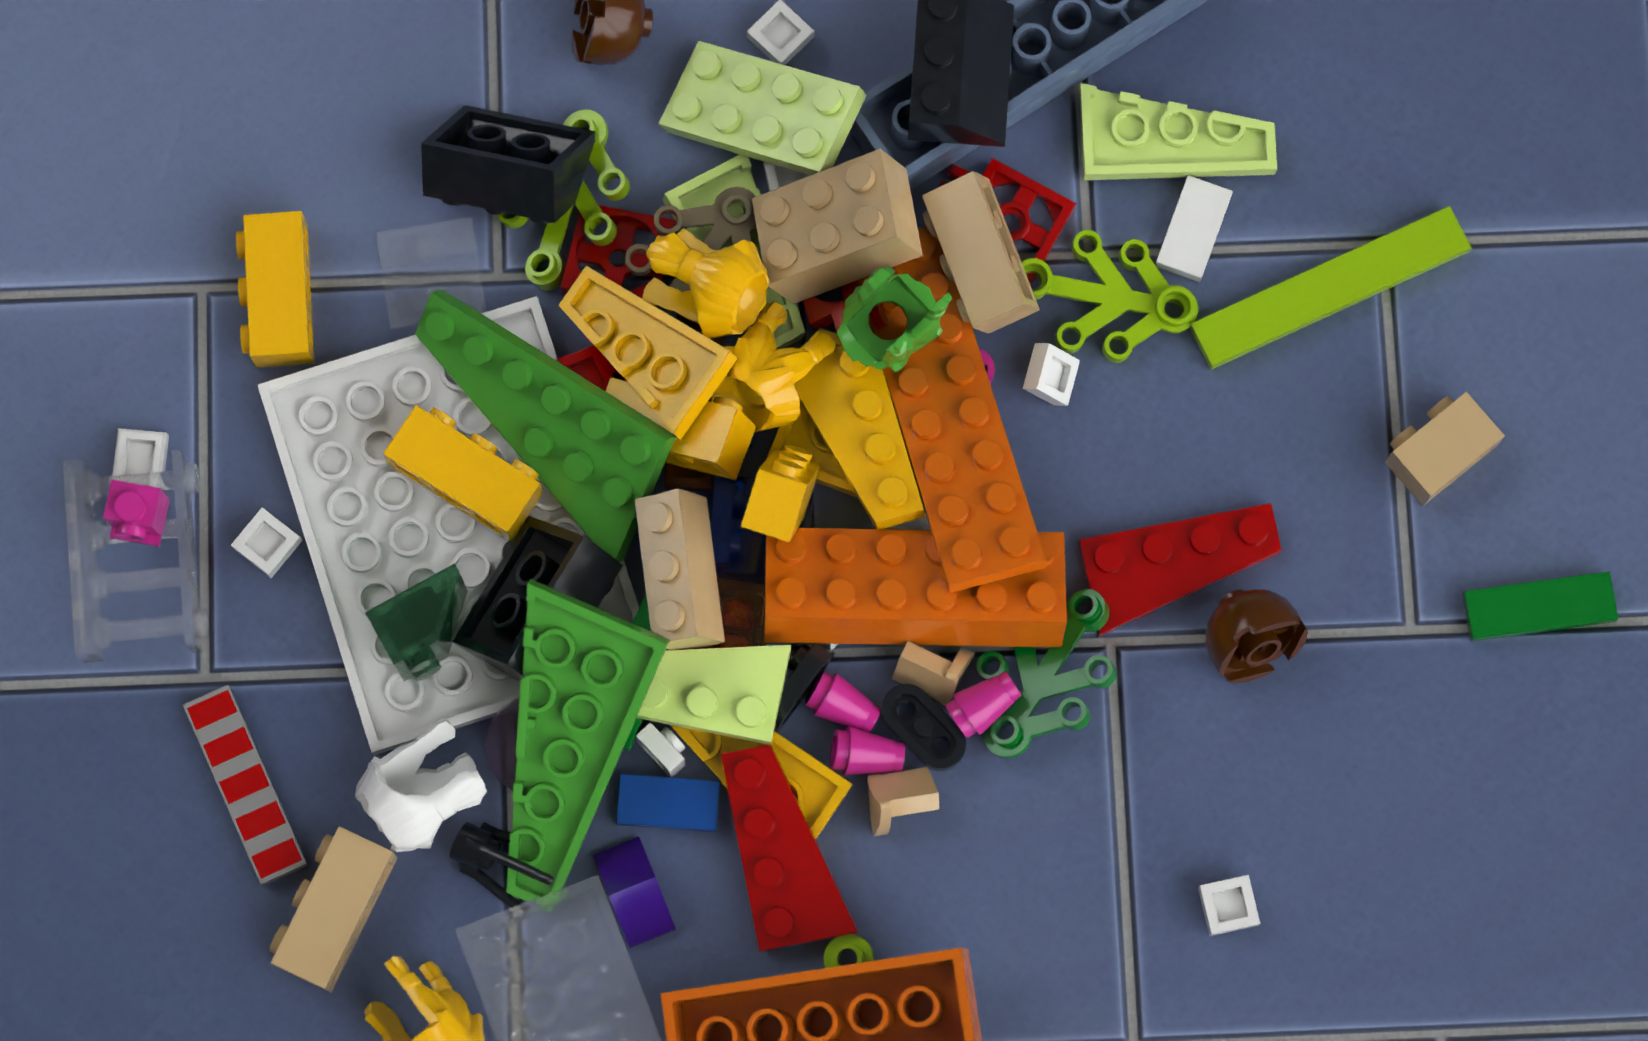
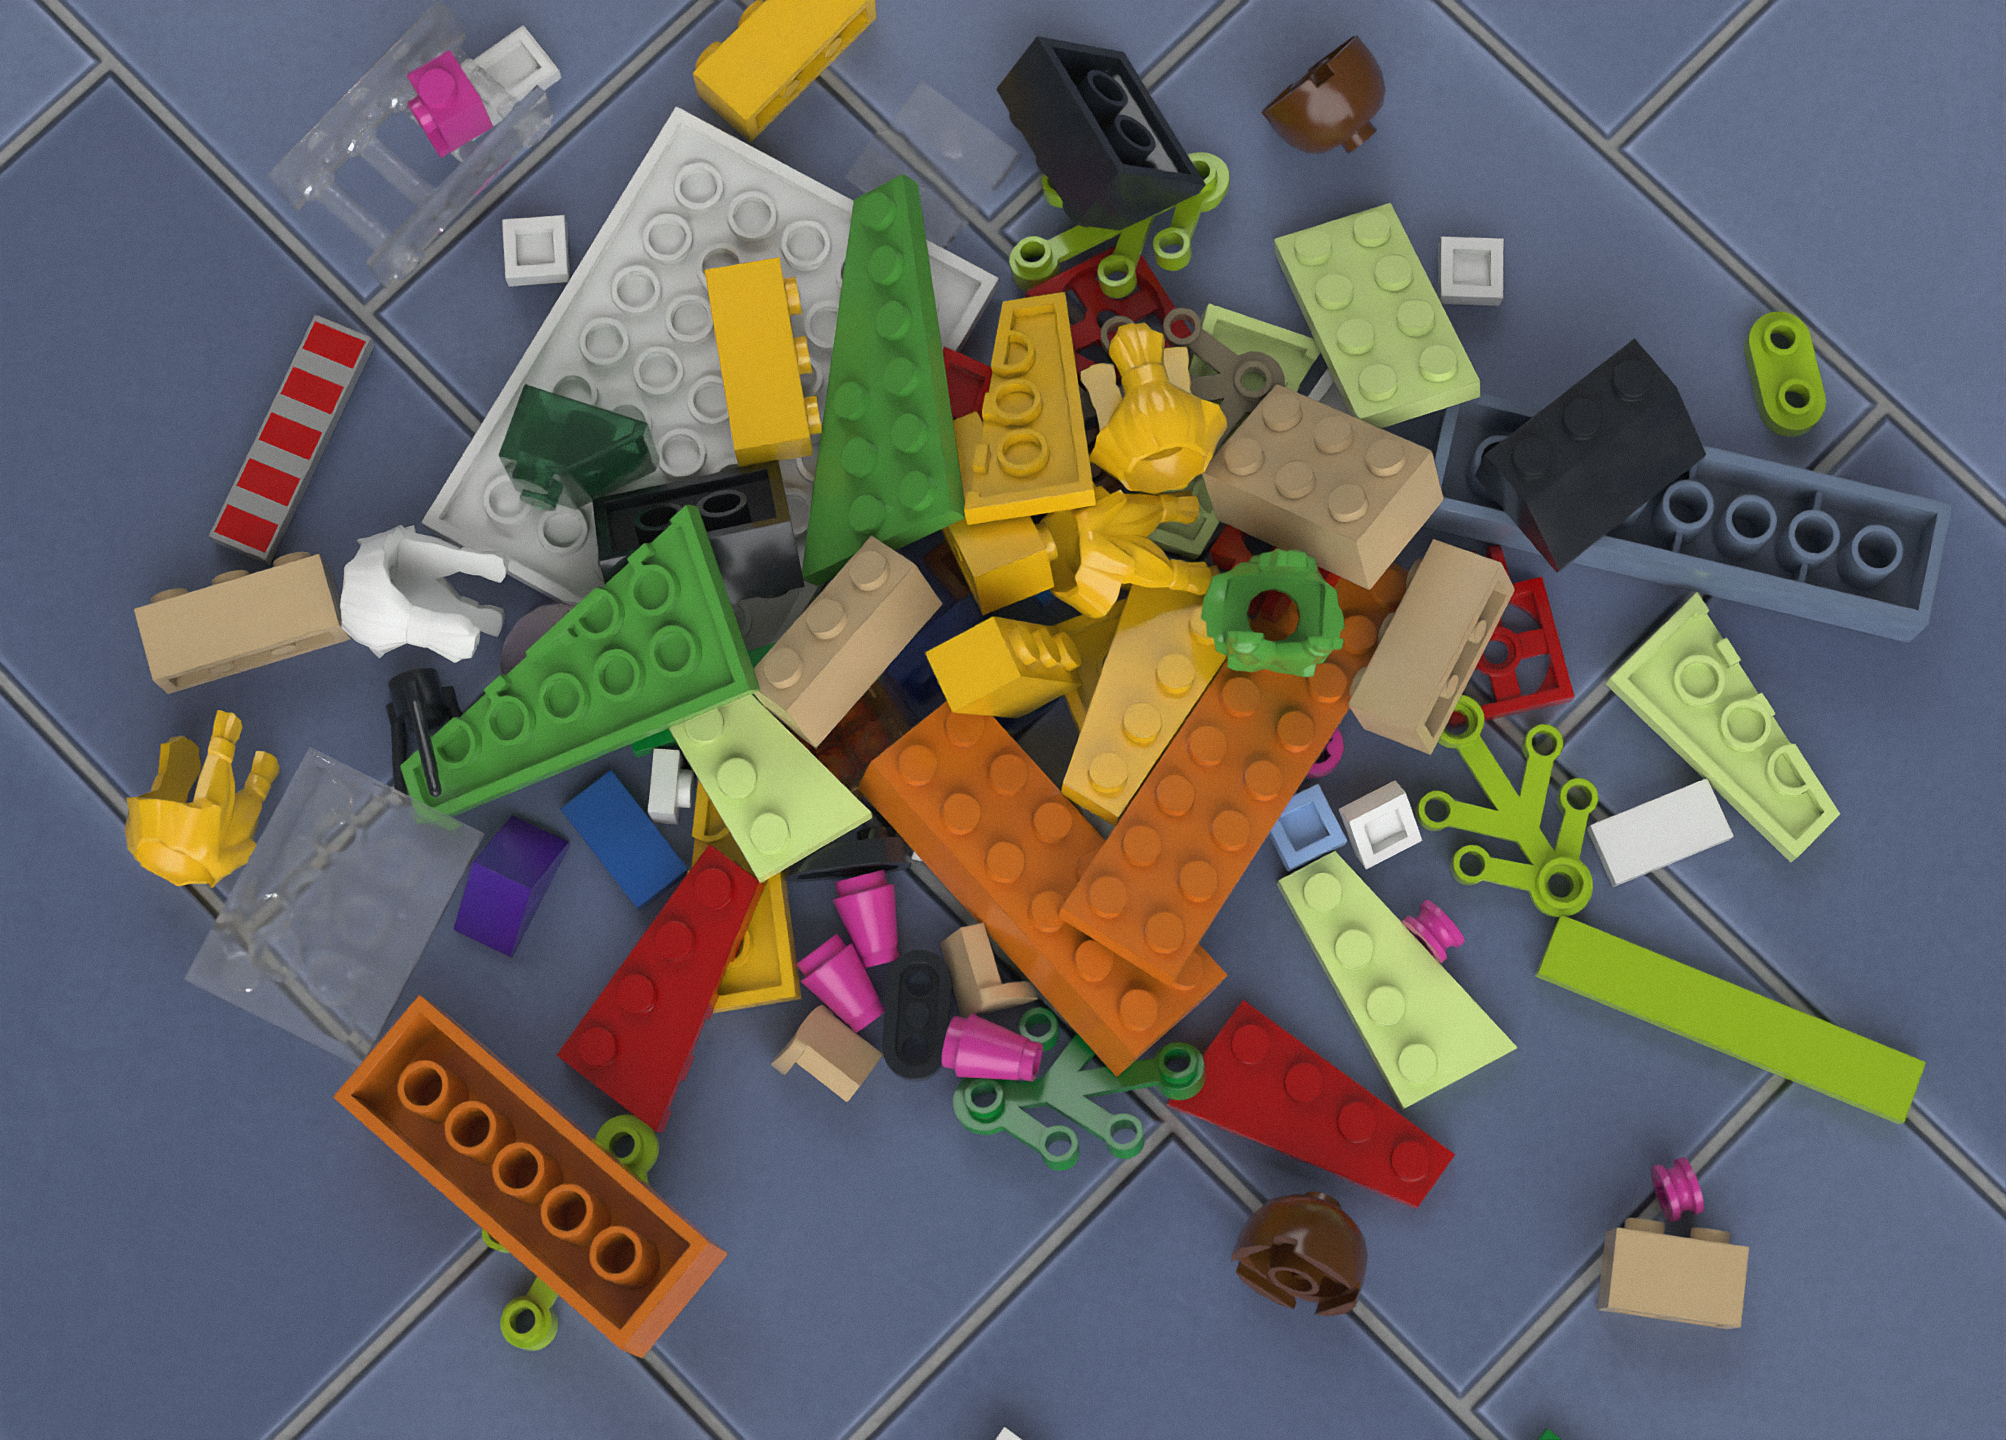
camera: 50 degrees right, 0 degrees up
(1019, 416) = (1306, 829): none -> light blue plate
(1137, 401) = (1434, 930): none -> dark pink bush
(1151, 453) = (1396, 993): none -> yellowish green wing
(1398, 401) = (1677, 1189): none -> dark pink bush

